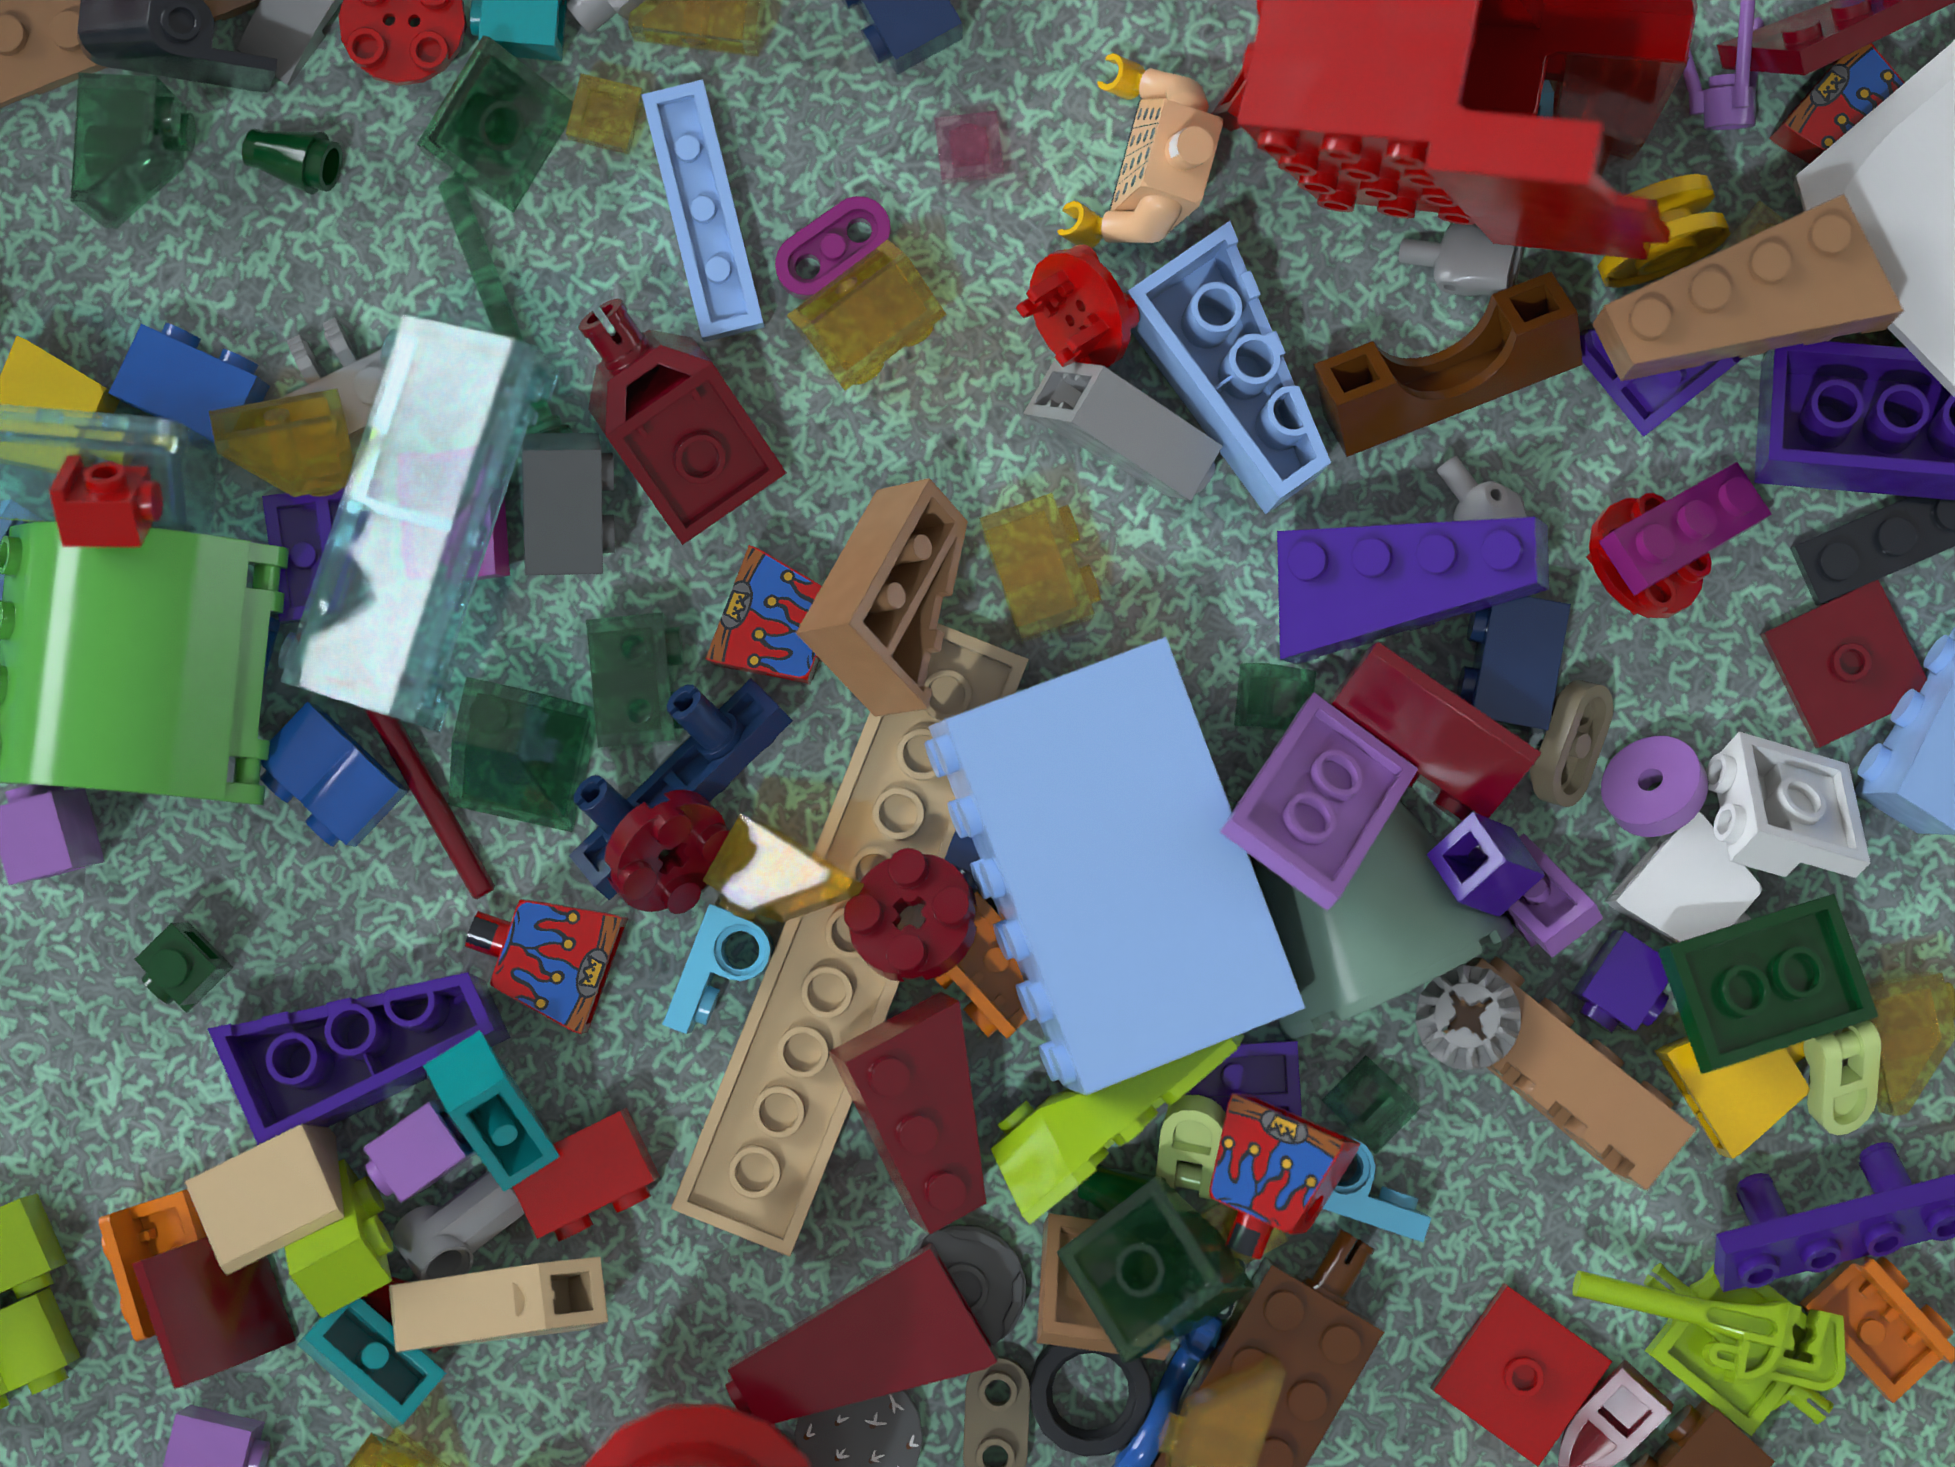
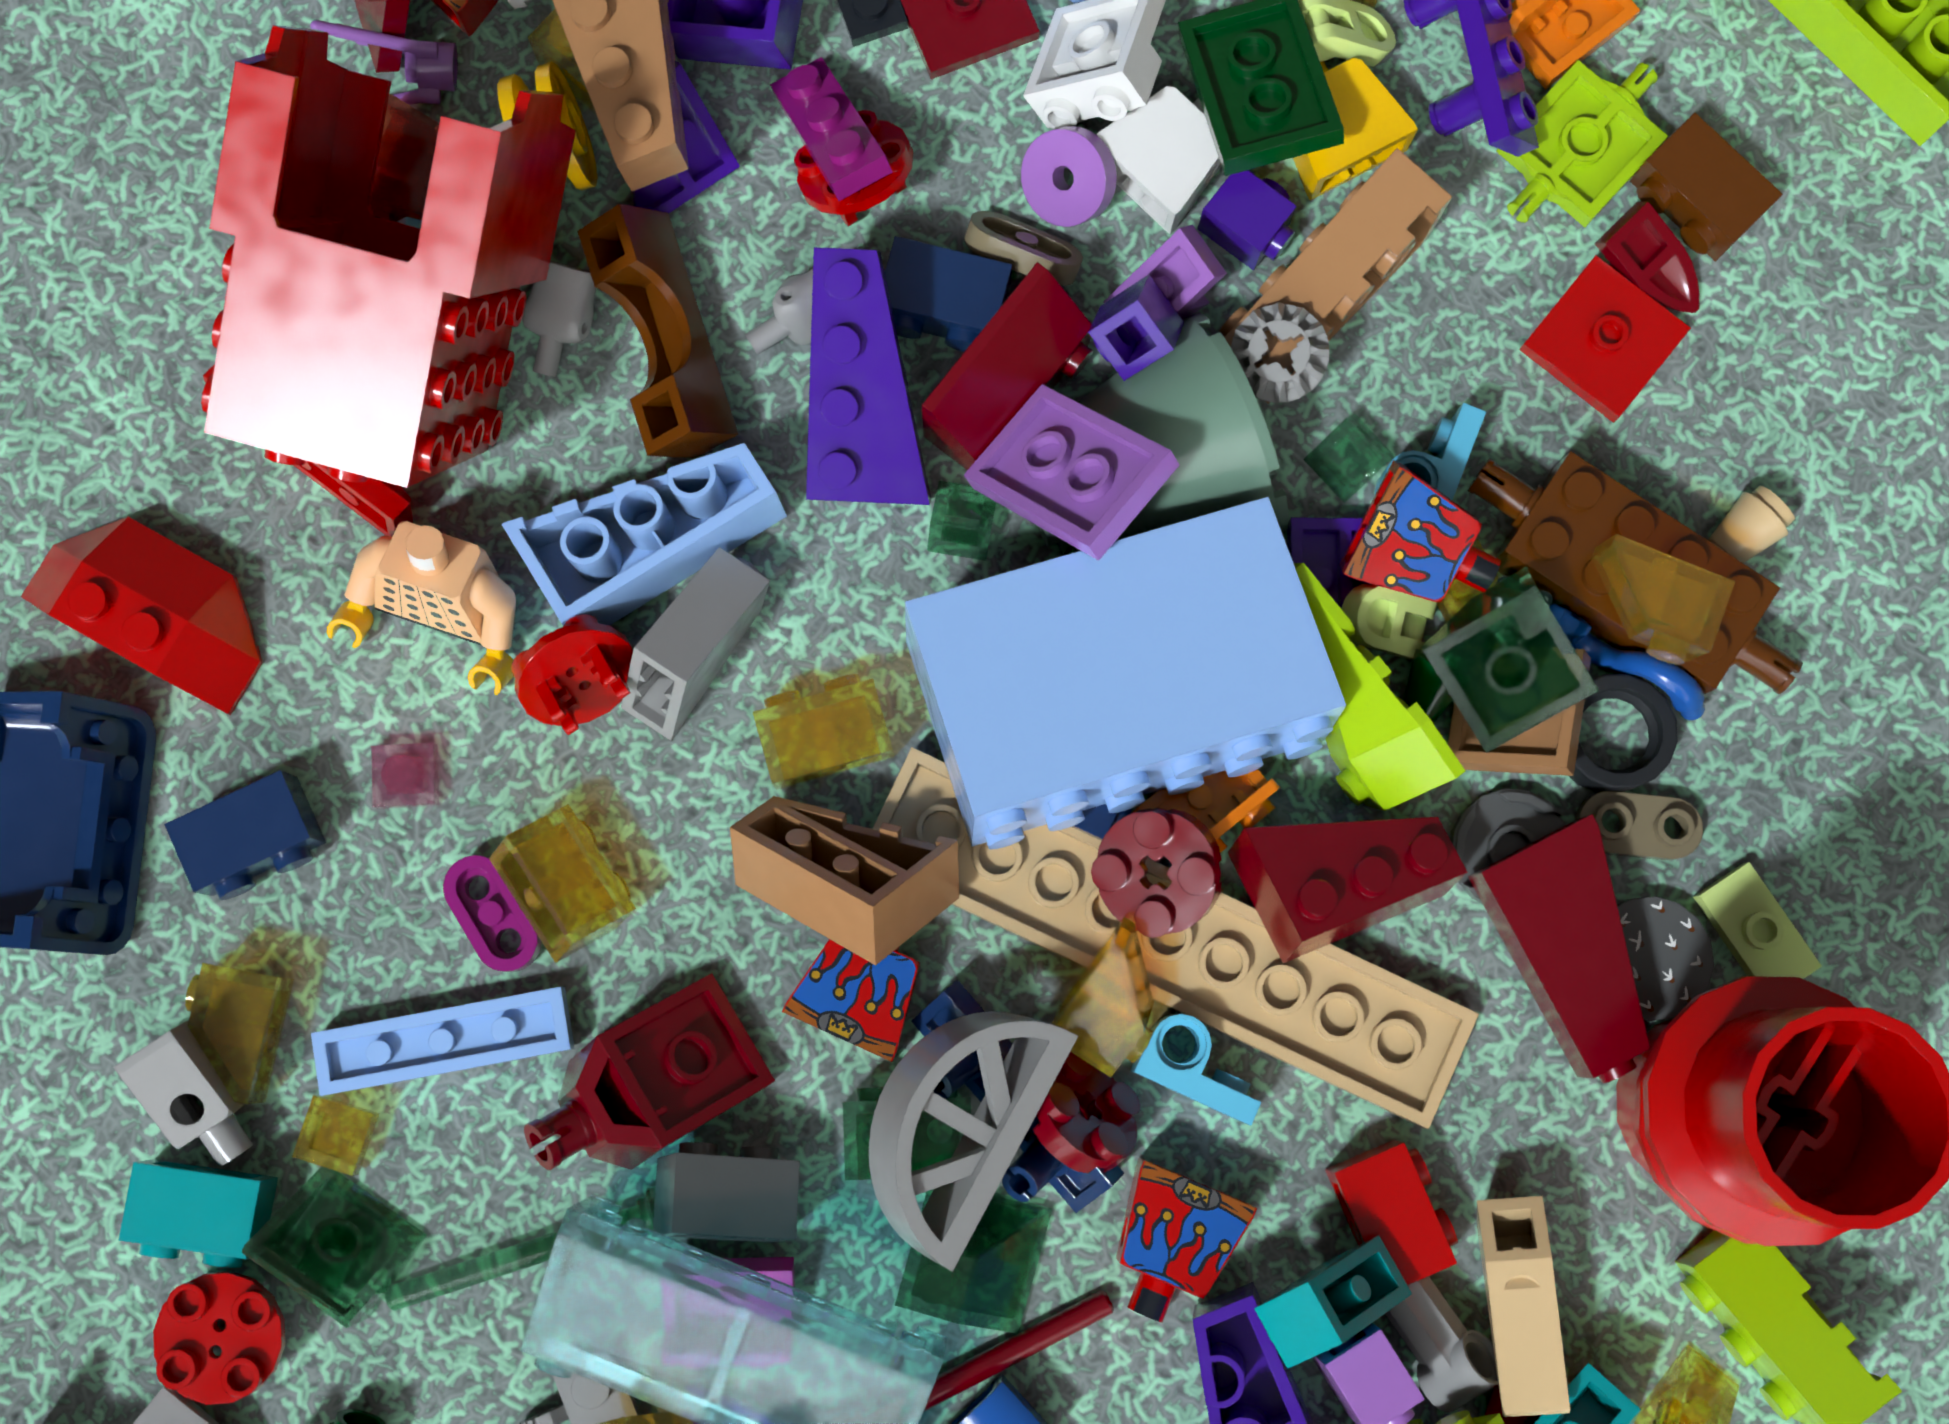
camera: 90 degrees left, 5 degrees down
(629, 758) = (990, 1137): none -> light grey window
(1748, 1334) = (1578, 126): lime piece -> none

